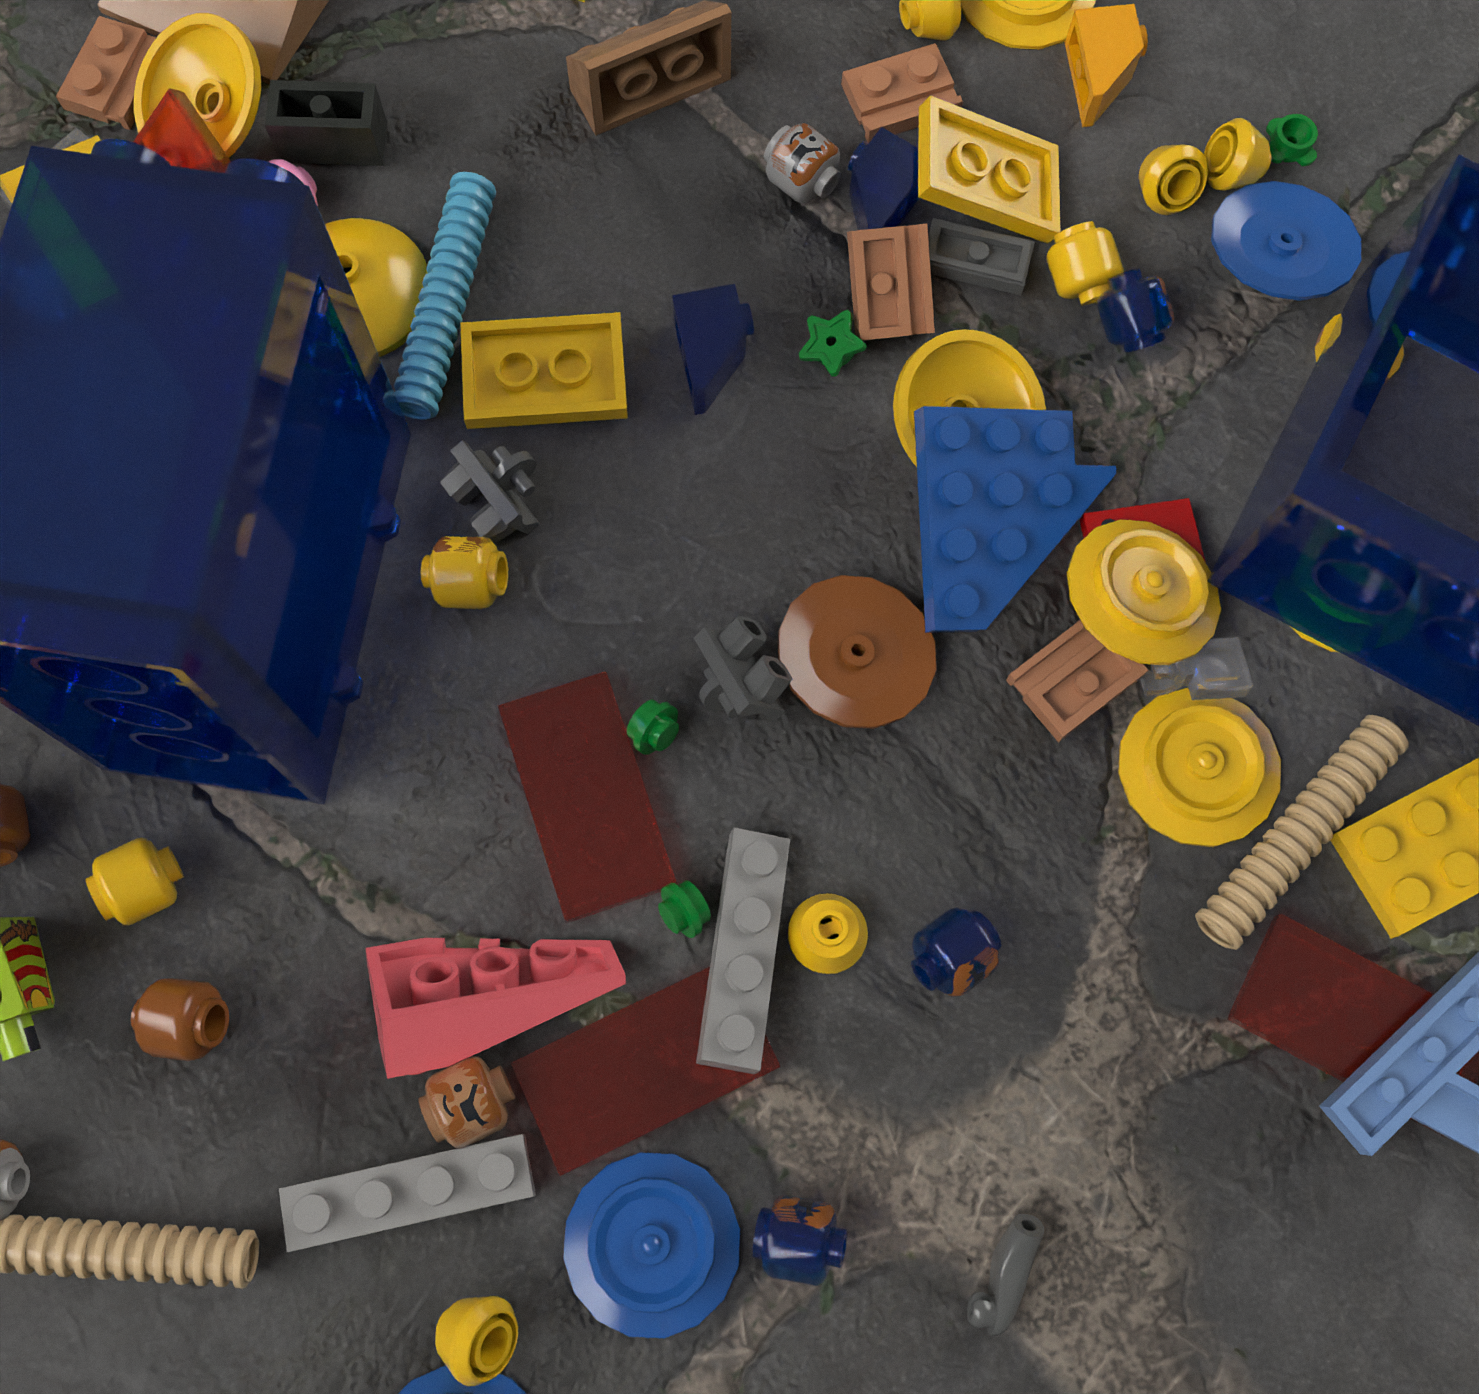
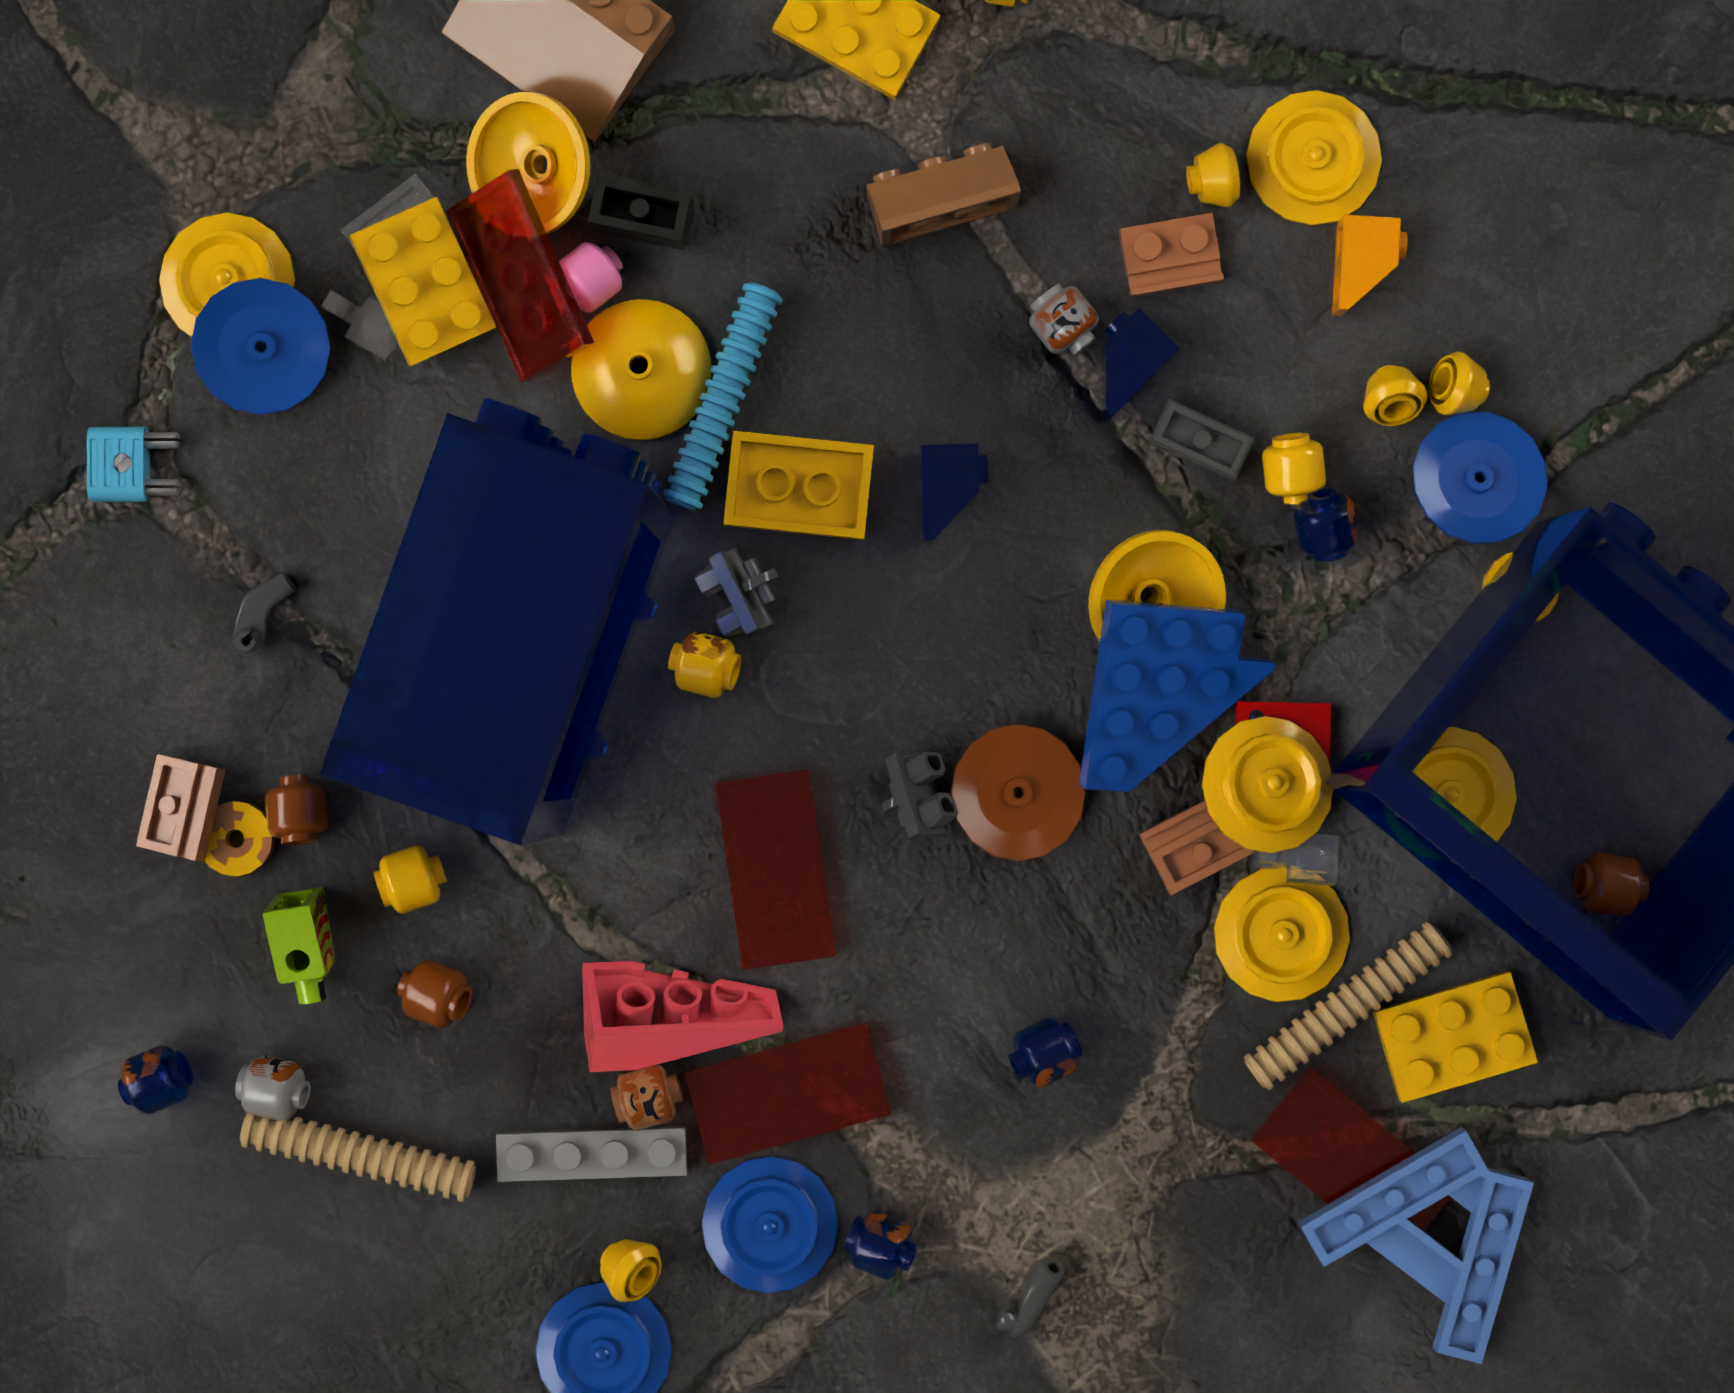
camera: 15 degrees right, 15 degrees up
(106, 73) = (449, 107): nougat plate -> none
(653, 726) = (839, 824): green plate -> none
(683, 908) = (837, 978): green plate -> none
(743, 952) = (879, 1019): light grey plate -> none
(810, 938) = (964, 1014): yellow cone -> none
(841, 352) = (1066, 507): green plate -> none
(891, 281) = (1116, 460): nougat plate -> none
(988, 170) = (1226, 368): yellow plate -> none
(1298, 130) = (1527, 361): green plate -> none

